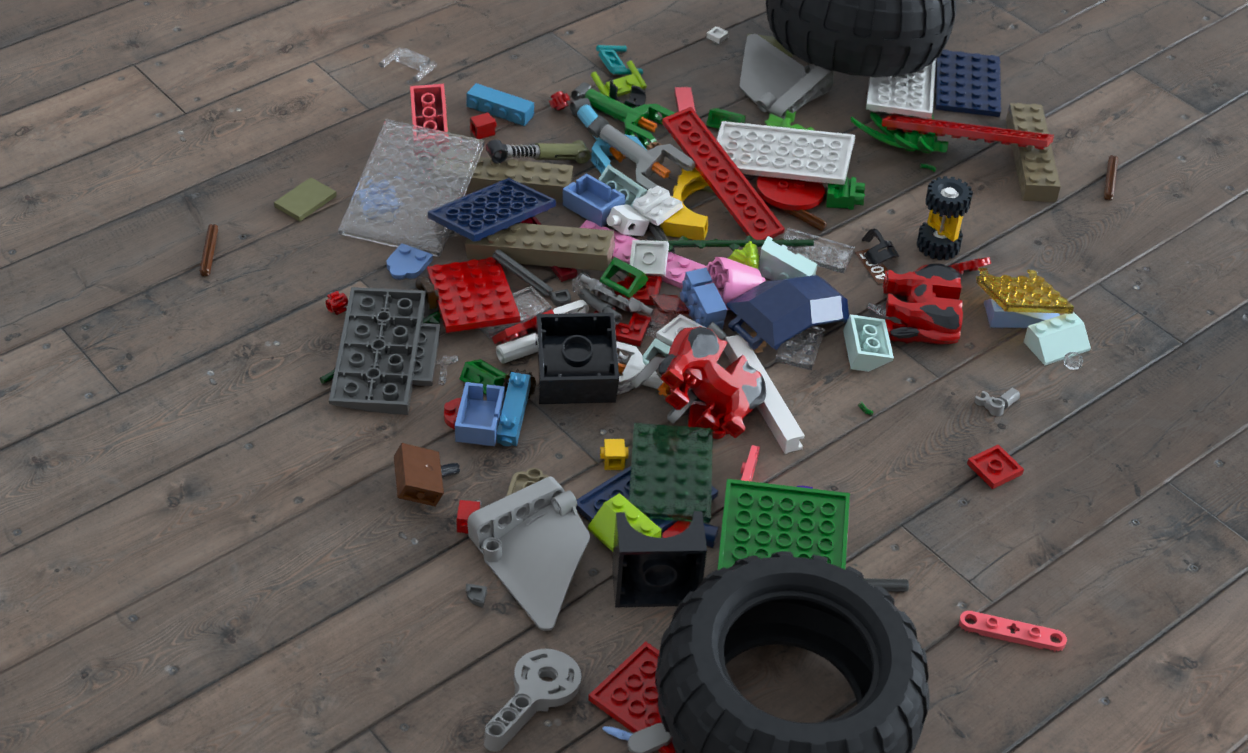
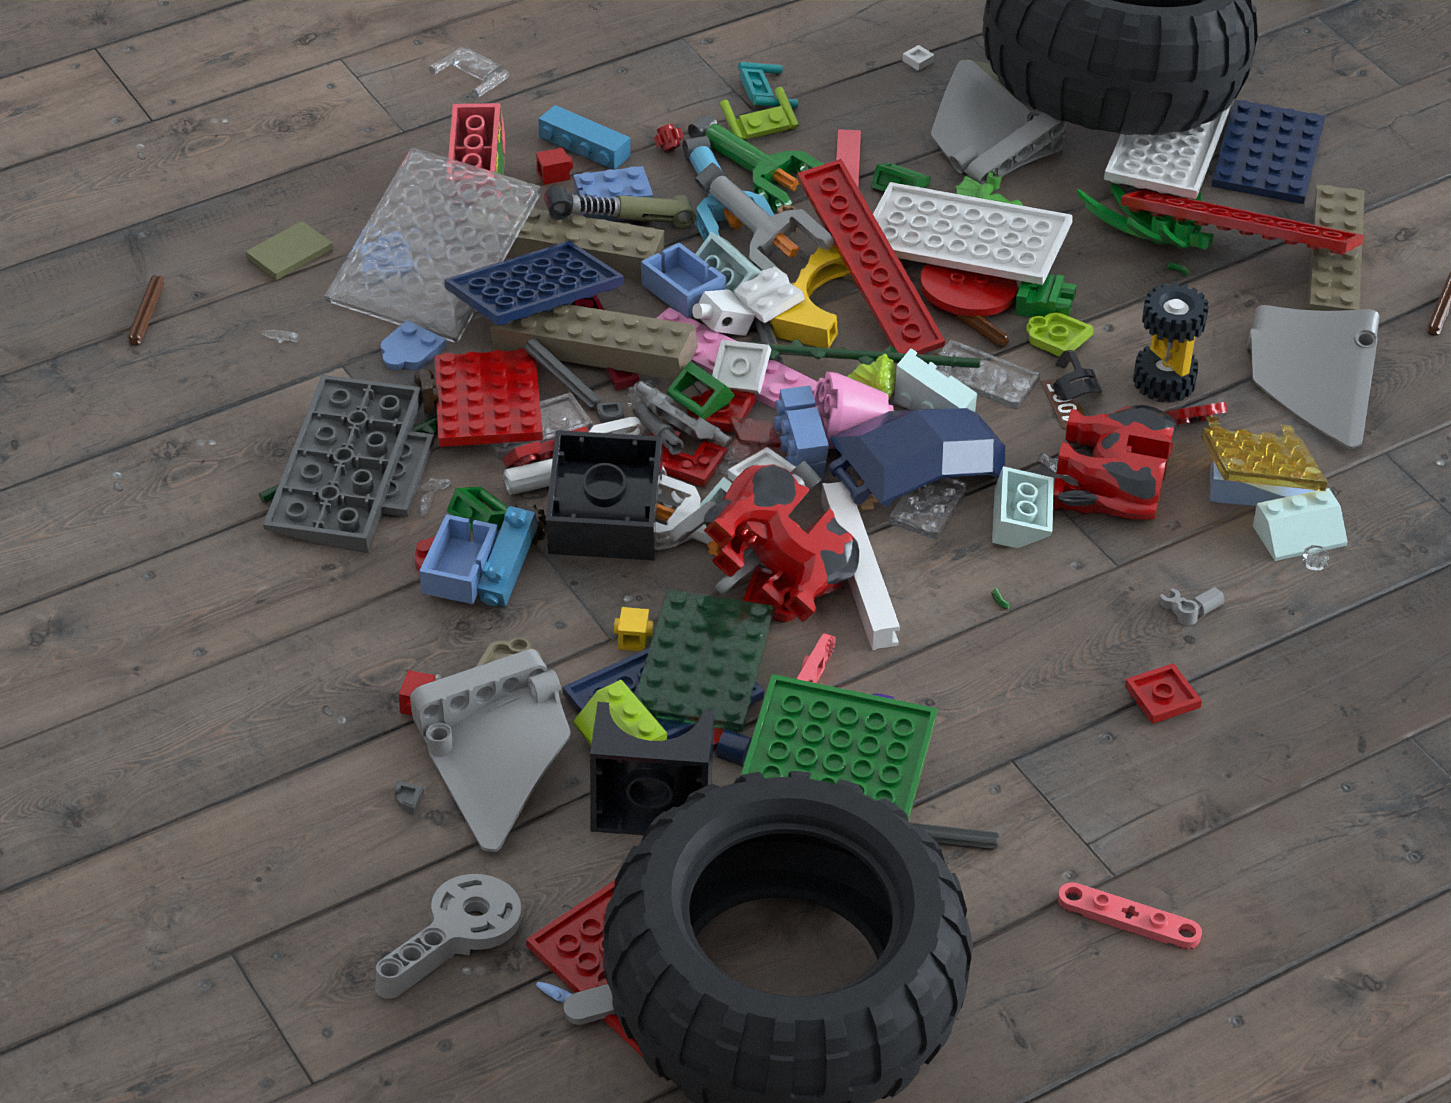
camera: 10 degrees right, 0 degrees up
(312, 261) = (281, 335): none -> clear helmet
(336, 302) = (300, 394): red gear -> none
(420, 474) = (363, 630): reddish brown piece -> none
(529, 135) = (611, 183): none -> medium blue piece
(636, 95) = (780, 135): black helmet -> none
(859, 217) = (1057, 332): none -> lime plate
(1041, 227) = (1317, 366): none -> light grey panel

